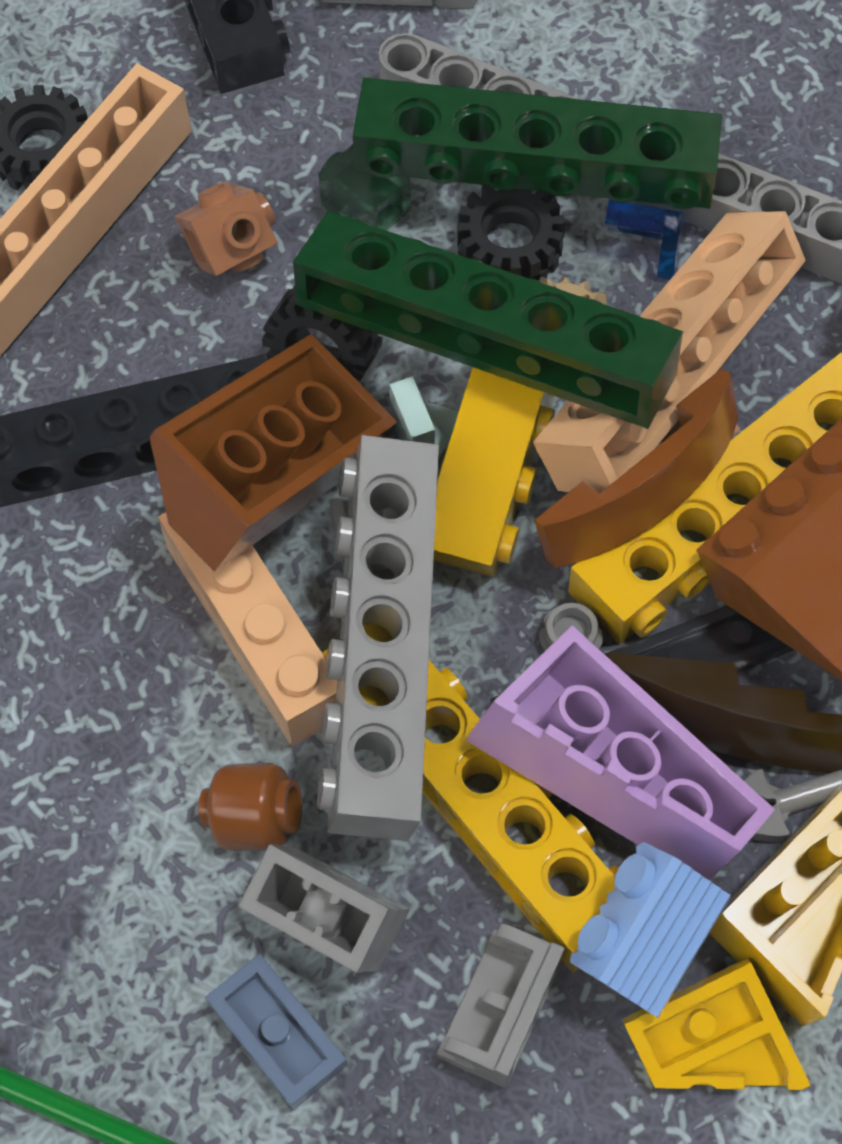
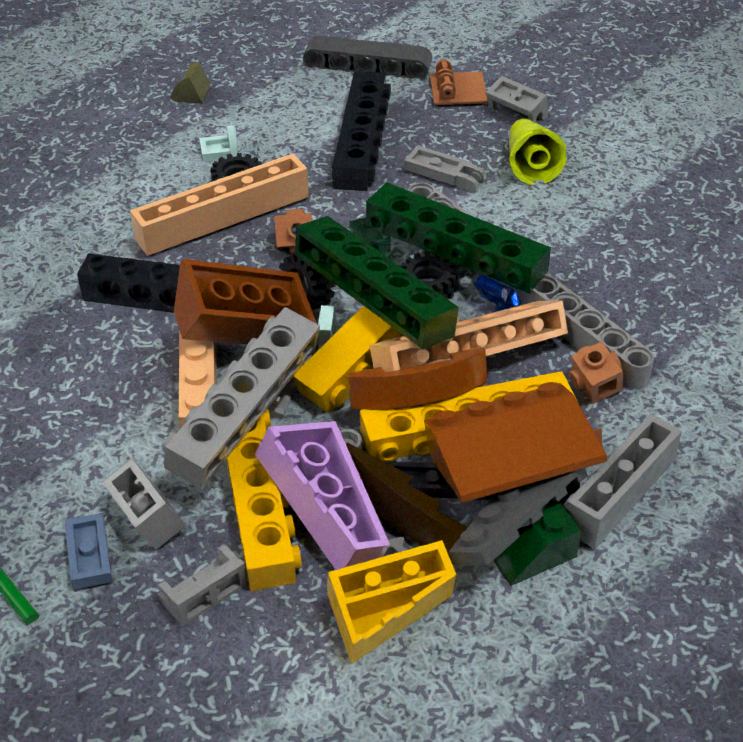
camera: 25 degrees right, 20 degrees down
(251, 806) = (144, 449): dark orange head -> none
(649, 928) = (288, 566): light blue brick -> none
(717, 1036) = (299, 641): yellow wing -> none

